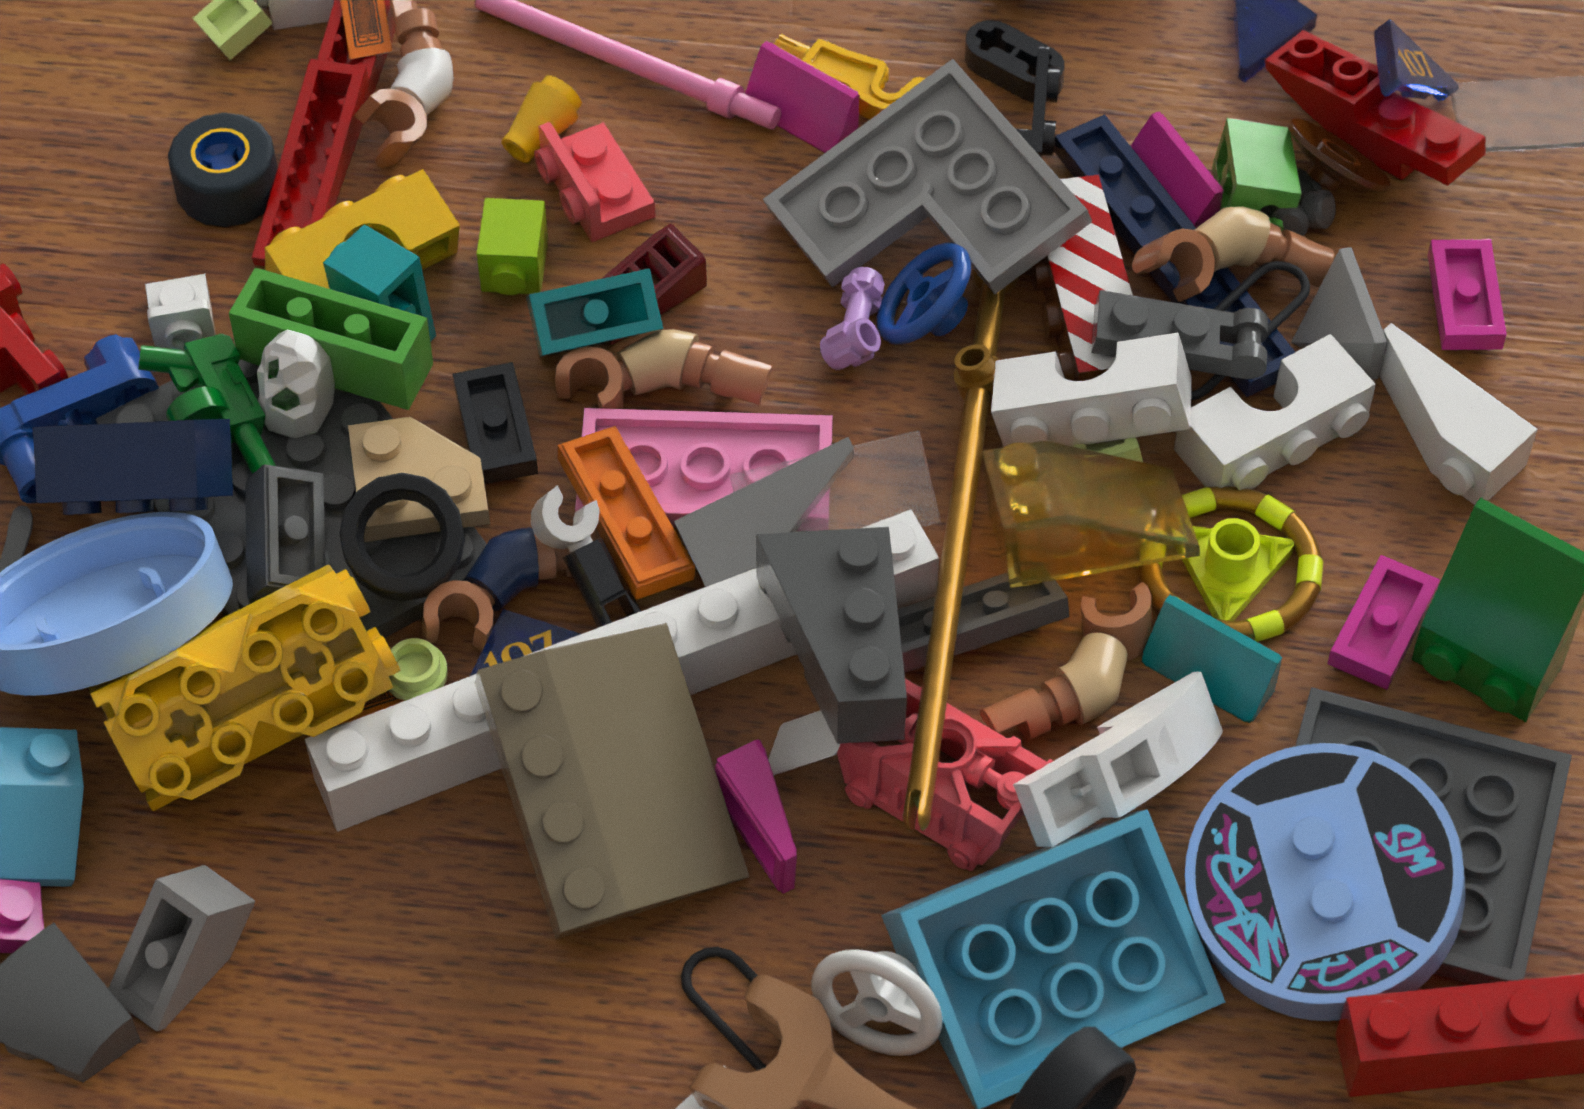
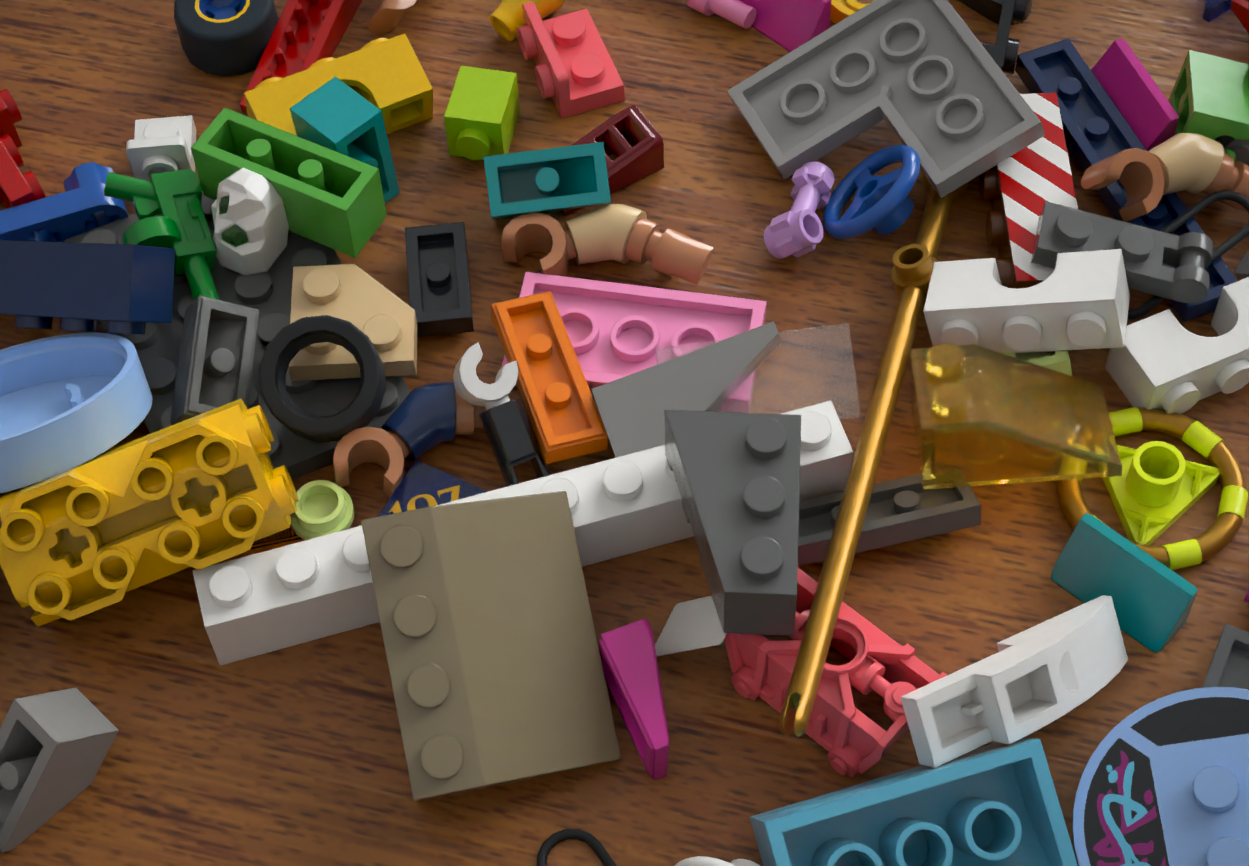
camera: 10 degrees right, 0 degrees up
(1089, 679) = (997, 588): nougat piece -> none

